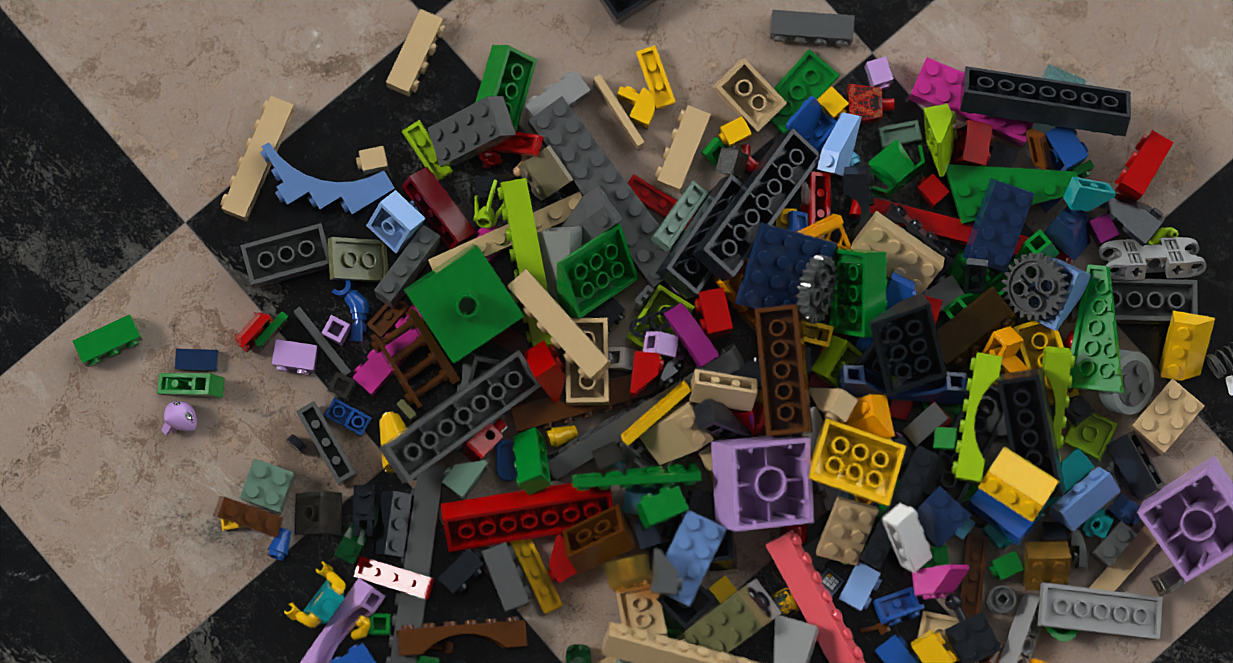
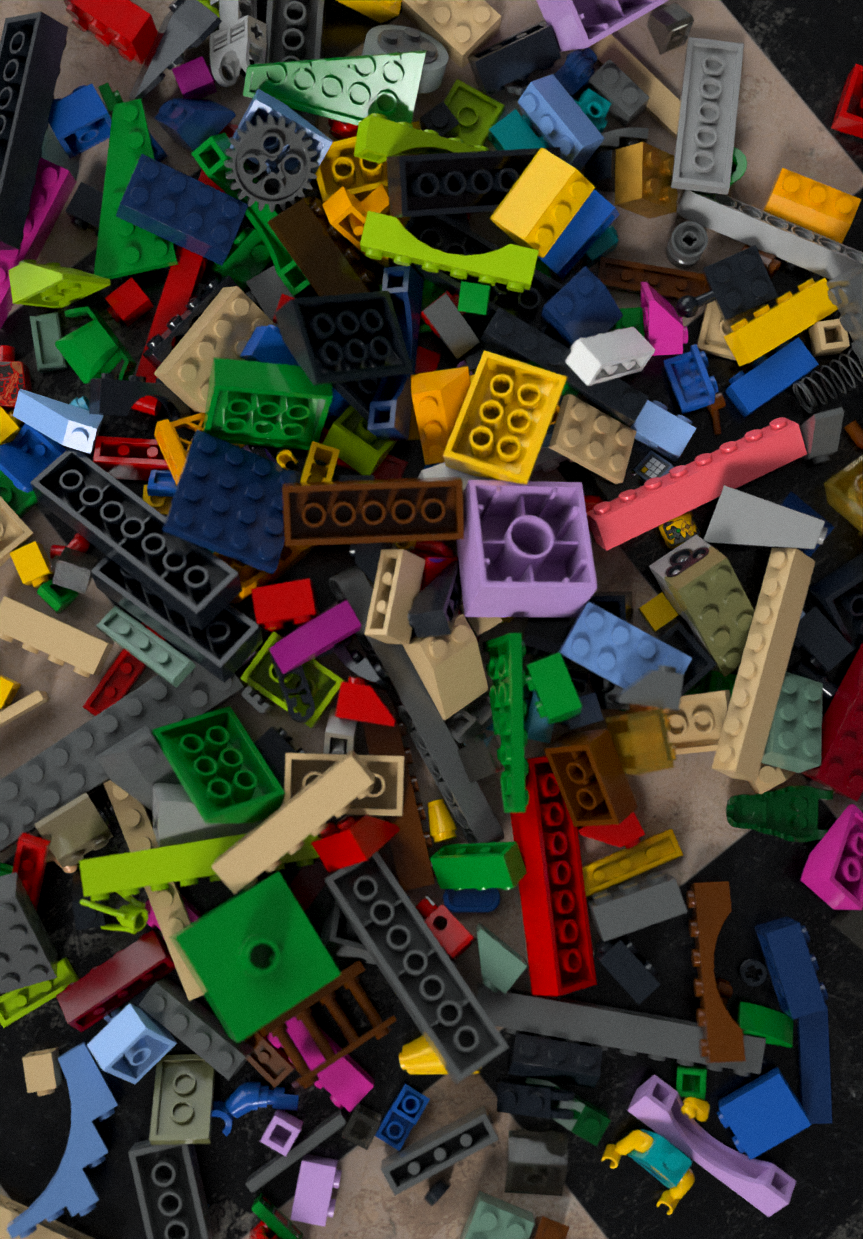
camera: 85 degrees left, 5 degrees up
(279, 546) = (577, 1217): blue cone -> none
(393, 577) = (630, 1062): tile -> none
(407, 410) = (397, 1034): olive tile -> none
(489, 158) = (49, 906): red plant -> none
(655, 412) = (421, 691): yellow tile -> none
(661, 343) = (326, 680): lavender brick -> none
(817, 289) = (260, 458): dark grey gear -> none
(833, 402) = (420, 445): tan slope -> none
(972, 144) = (66, 240): red slope -> none
(975, 276) = (251, 245): black plate -> none
(1006, 566) = (641, 235): green brick -> none
(1039, 149) = (79, 153): dark orange tile -> none
(1087, 194) = (146, 89): teal slope -> none

